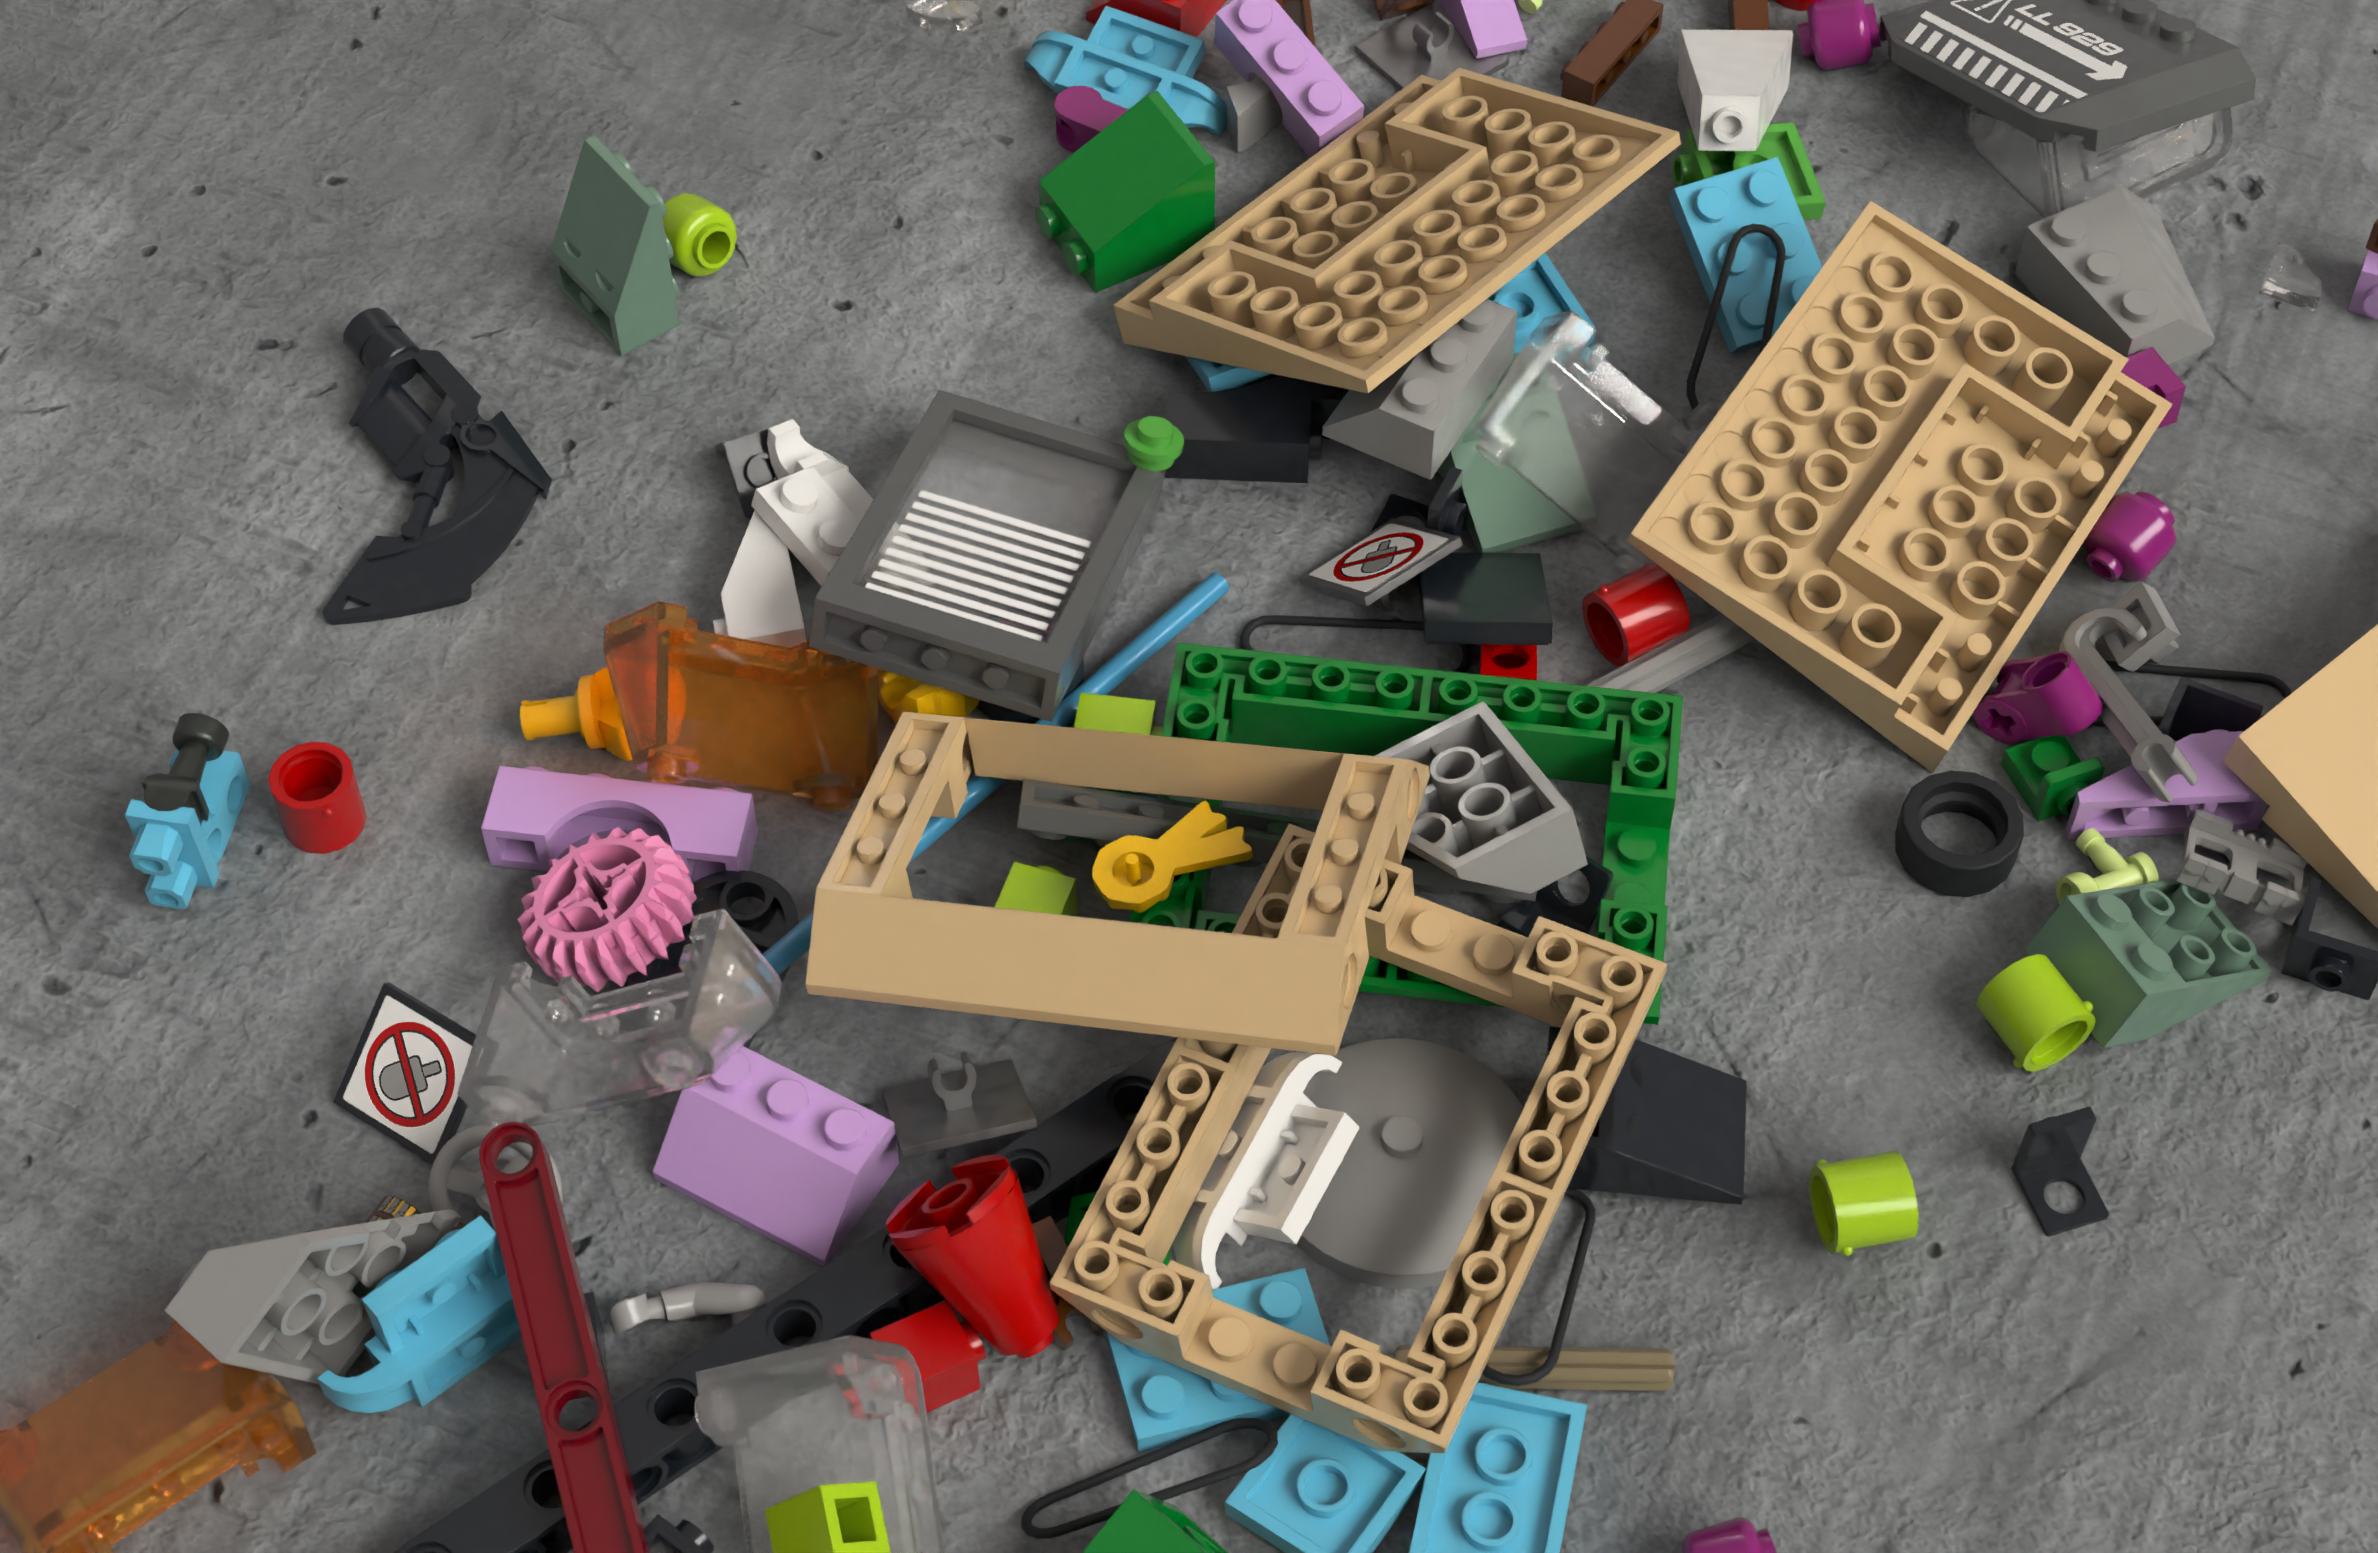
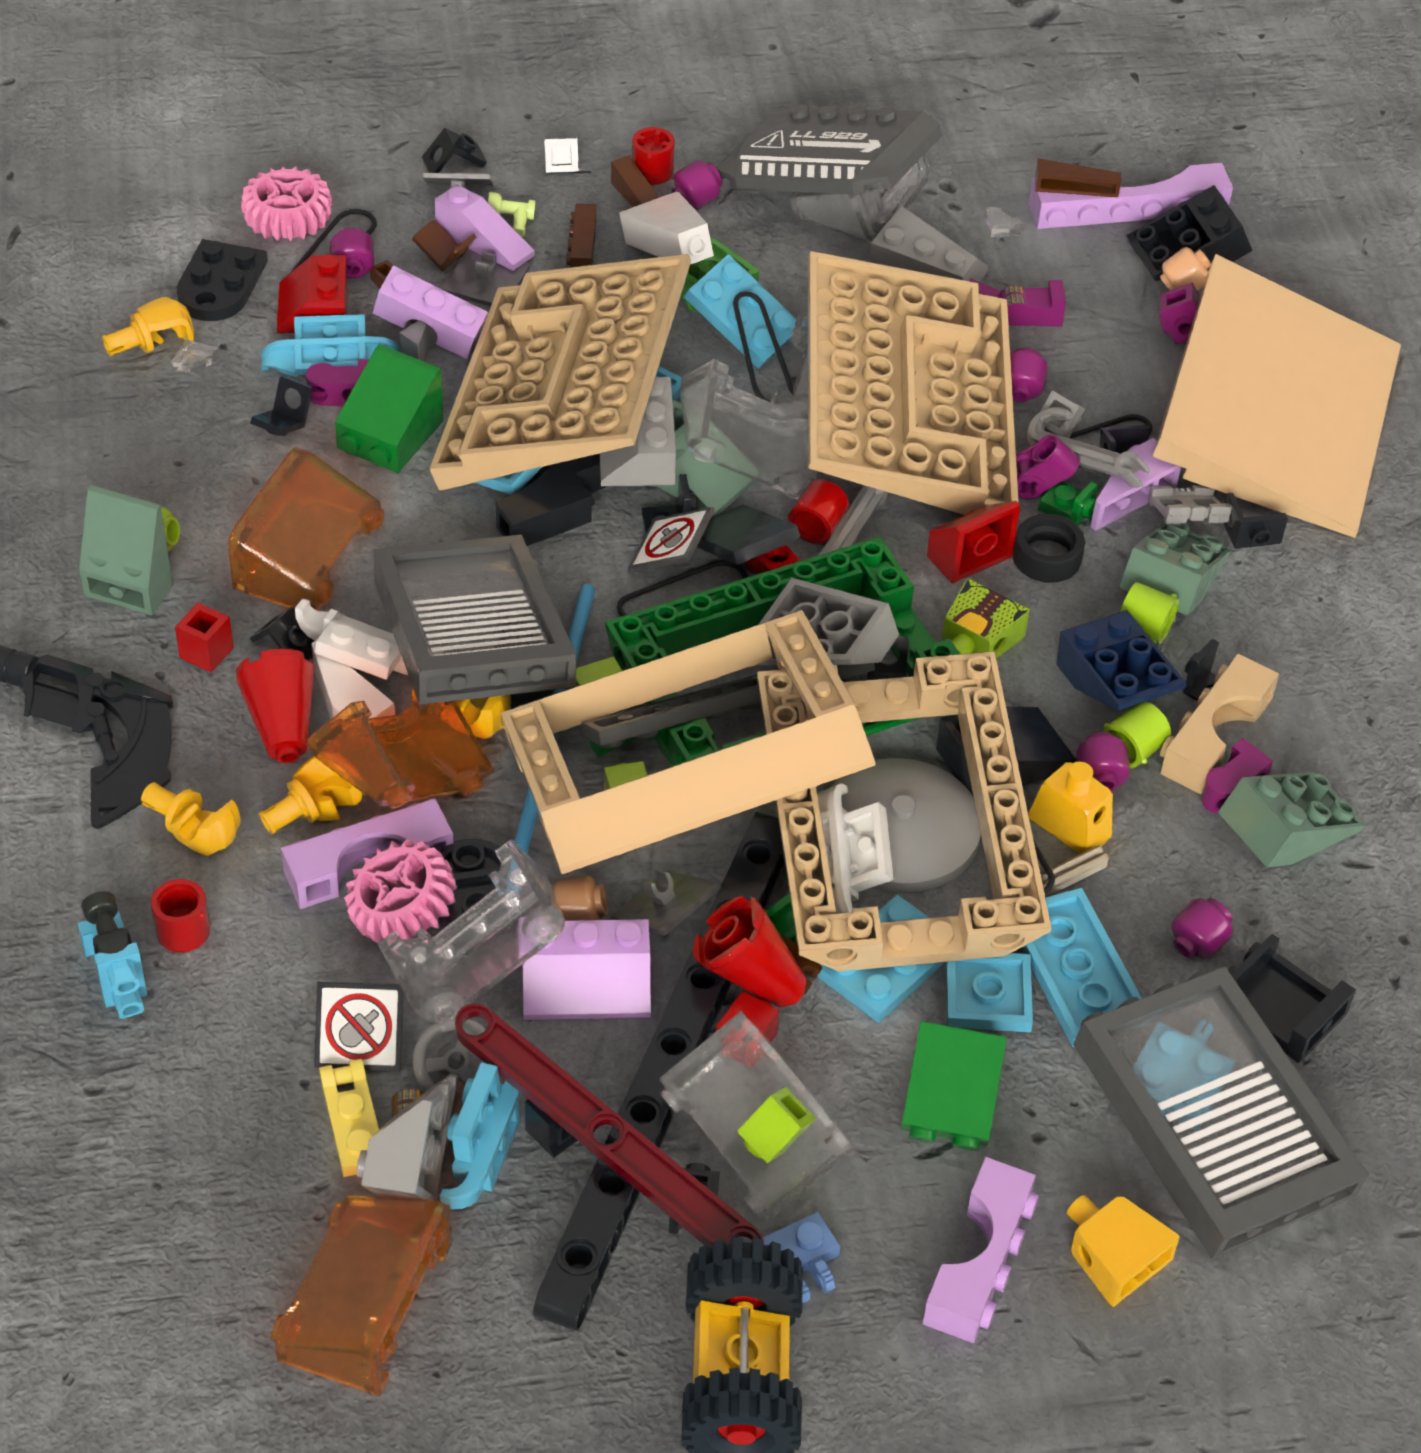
camera: 35 degrees left, 5 degrees down
(330, 1189) = (349, 1112): none -> light yellow plate
(434, 669) = (195, 828): none -> yellow piece
(639, 417) = (204, 637): none -> red brick
(666, 544) = (279, 700): none -> red cone
(686, 1303) = (594, 1068): light grey arm -> none
(838, 1045) = (581, 898): none -> medium nougat head
(873, 313) = (298, 531): none -> clear orange windscreen
(995, 147) = (282, 417): none -> black bracket
(1141, 870) = (686, 736): yellow piece -> none
(1153, 443) = (512, 528): bright green plate -> none
(1173, 1491) = (859, 1082): black piece -> none
(1665, 1257) = (1074, 807): none -> yellow torso
(1753, 908) = (984, 621): none -> lime torso
(1774, 1220) = (1107, 758): none -> magenta head
(1840, 769) = (974, 540): none -> red slope
(1914, 1071) = (1116, 662): none -> dark blue slope
(1977, 1357) = (1243, 762): none -> magenta leg
(2021, 1462) = (1289, 816): none -> sand green slope
(2091, 1214) = (1237, 694): none -> tan arch
(2114, 868) = (1131, 536): yellowish green piece -> none
(2234, 431) = (1035, 305): none -> magenta leg

